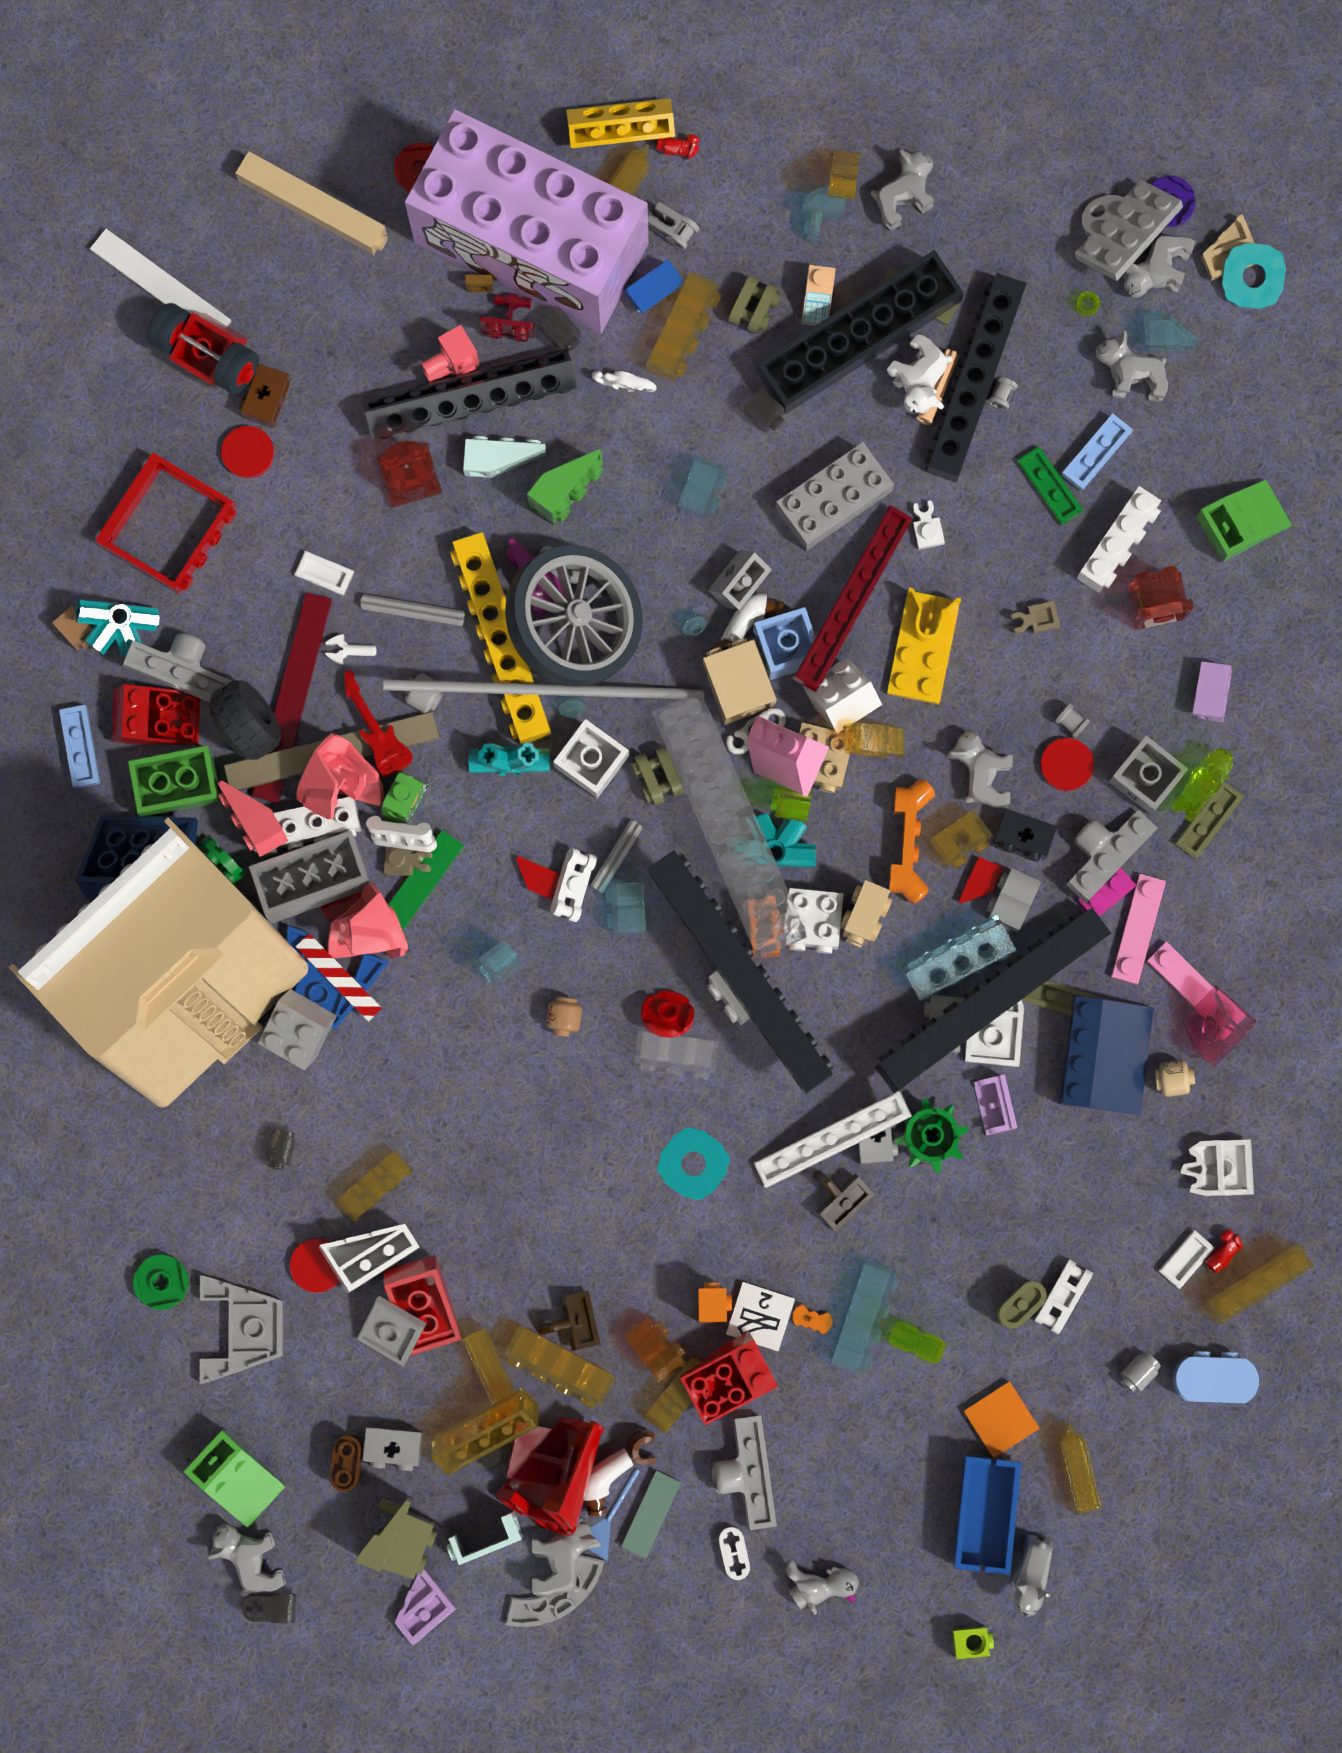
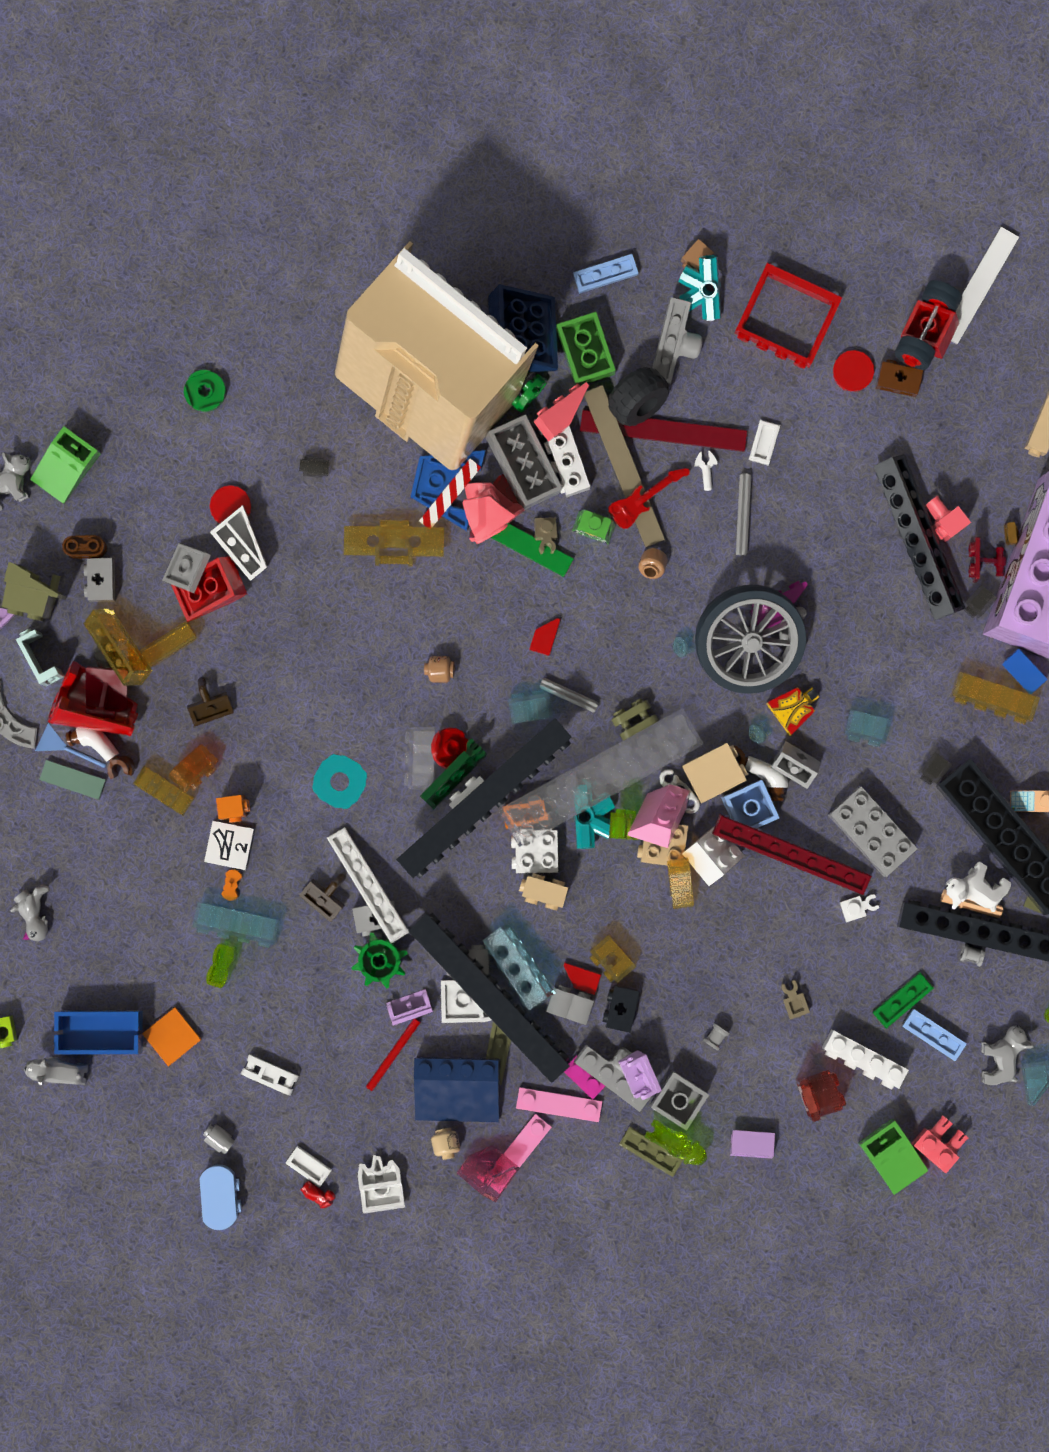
camera: 80 degrees right, 5 degrees up
(154, 716) = (635, 328): red slope -> none
(253, 1329) = (176, 464): light grey wing -> none
(297, 1029) = (405, 467): light grey brick -> none
(337, 770) = (609, 472): coral piece -> none
(373, 1186) = (294, 541): clear yellow beam -> none
(383, 1055) = (394, 535): none -> clear yellow piece
(401, 835) = (564, 527): white plate -> none
(408, 473) = (850, 498): clear red piece -> none
(423, 700) = (678, 530): light grey head -> none
(461, 729) = (653, 563): none -> medium nougat head
(476, 548) = (797, 558): yellow brick -> none
(493, 458) = (870, 560): light aqua slope -> none
(499, 963) = (473, 614): clear light blue brick -> none
(509, 759) = (633, 603): teal piece -> none
(538, 689) = (685, 577): light grey piece -> none
(560, 1366) = (174, 697): clear yellow brick -> none
(563, 485) = (852, 616): bright green slope -> none
(563, 1557) = (30, 717): light grey animal -> none
(572, 884) = (542, 663): white plate -> none
(591, 758) = (641, 666): white brick -> none
(624, 380) = (946, 656): white piece -> none
(667, 576) = (793, 708): none -> torso
(702, 1012) = (453, 774): none -> dark green tile
(727, 1554) = (48, 841): white beam -> none
(728, 1378) = (178, 826): red slope -> none
(748, 1473) = (110, 849): light grey plate -> none
(758, 319) = (1026, 762): olive brick -> none
(907, 803) = (636, 915): orange plate -> none
(923, 647) = (761, 914): yellow plate -> none
(982, 769) = (668, 970): light grey animal -> none
(1021, 1305) = (258, 1042): olive brick -> none
(1053, 1134) = (393, 1054): none -> red bar
(1067, 764) = (681, 1036): red tile -> none
(1078, 1471) = (138, 1099): clear yellow piece -> none
(1113, 819) = (639, 1075): none -> lavender hinge
(1247, 461) = (940, 1154): none -> coral brick
(1258, 1283) = (295, 1223): clear yellow brick -> none

